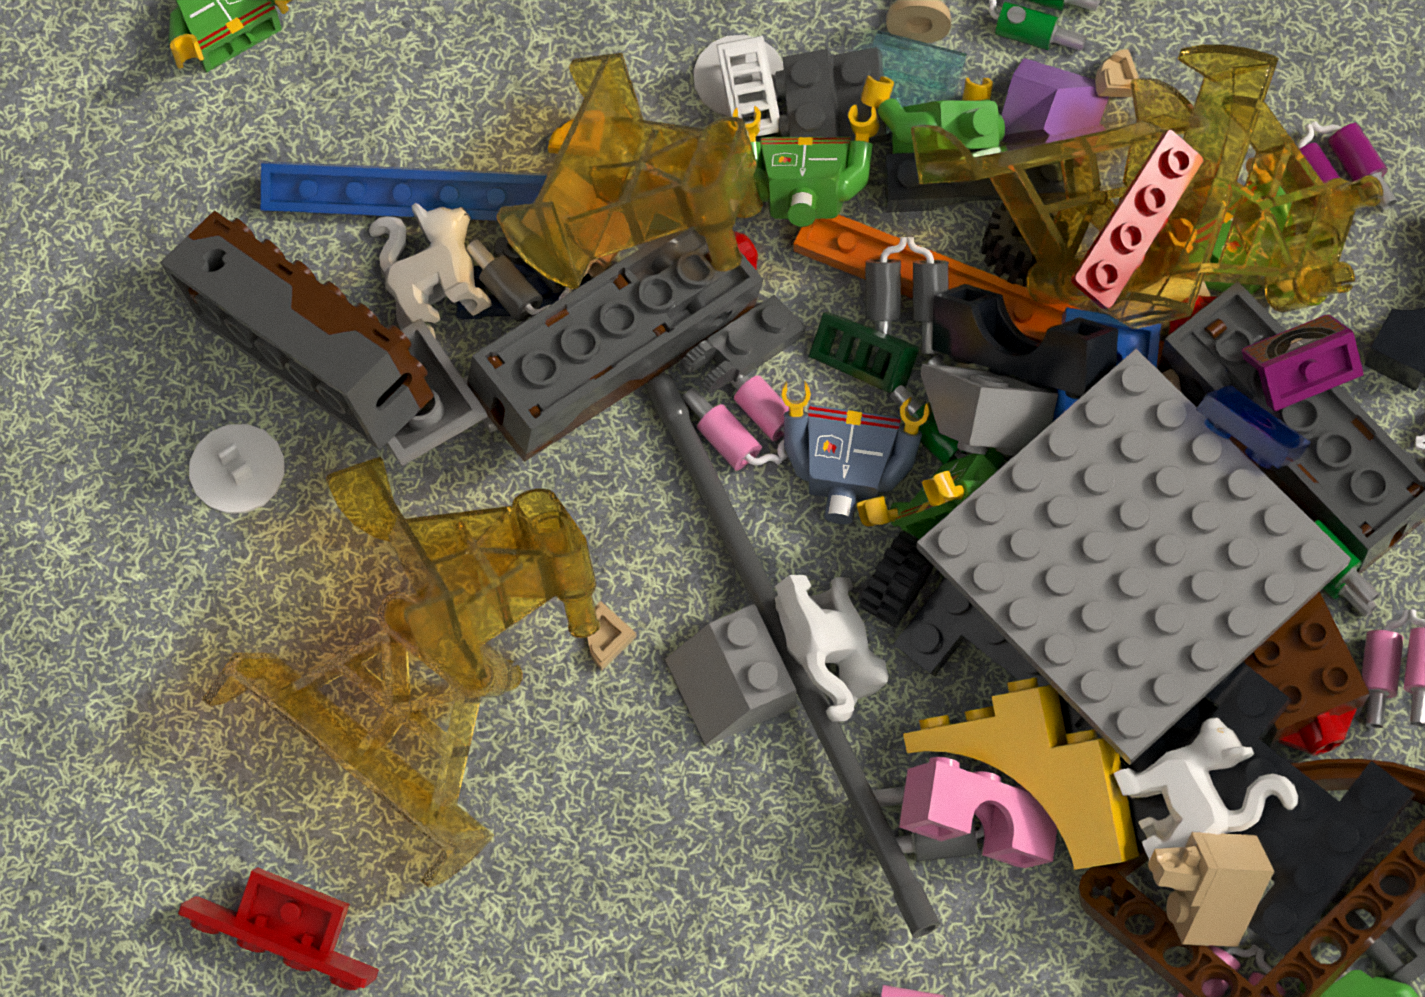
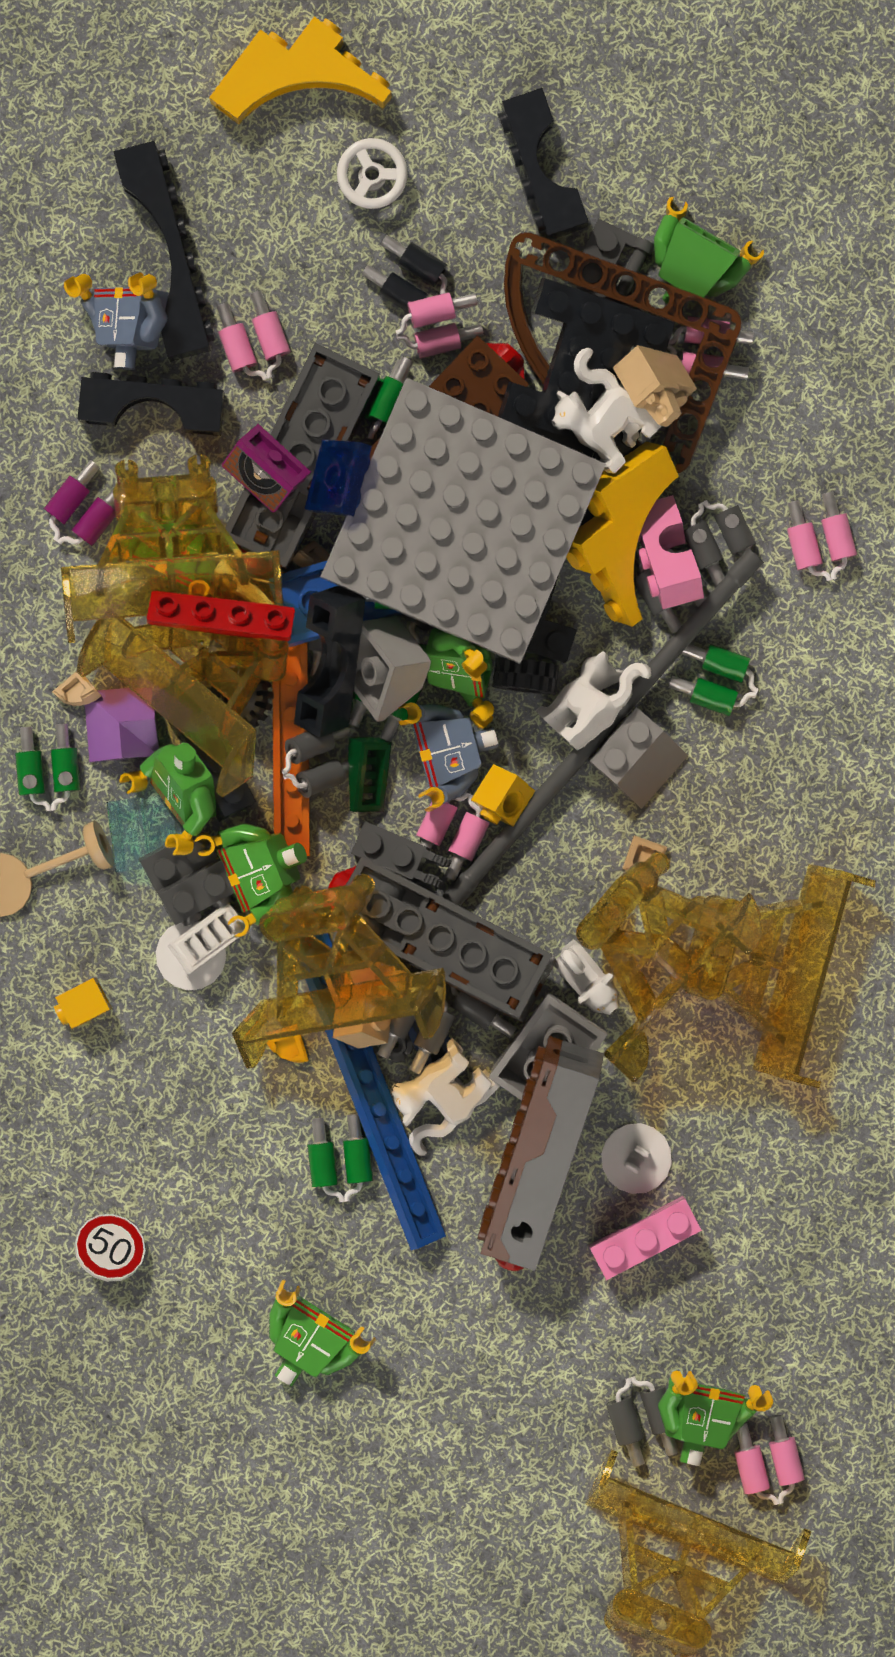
camera: 120 degrees left, 20 degrees up
(132, 440) = (645, 1238): none -> bright pink arch
(419, 114) = (323, 1161): none -> green piece
(484, 481) = (587, 979): none -> white animal
(760, 489) = (502, 796): none -> yellow brick
(770, 803) = (711, 694): none -> green piece
(970, 881) = (704, 544): none -> dark grey piece

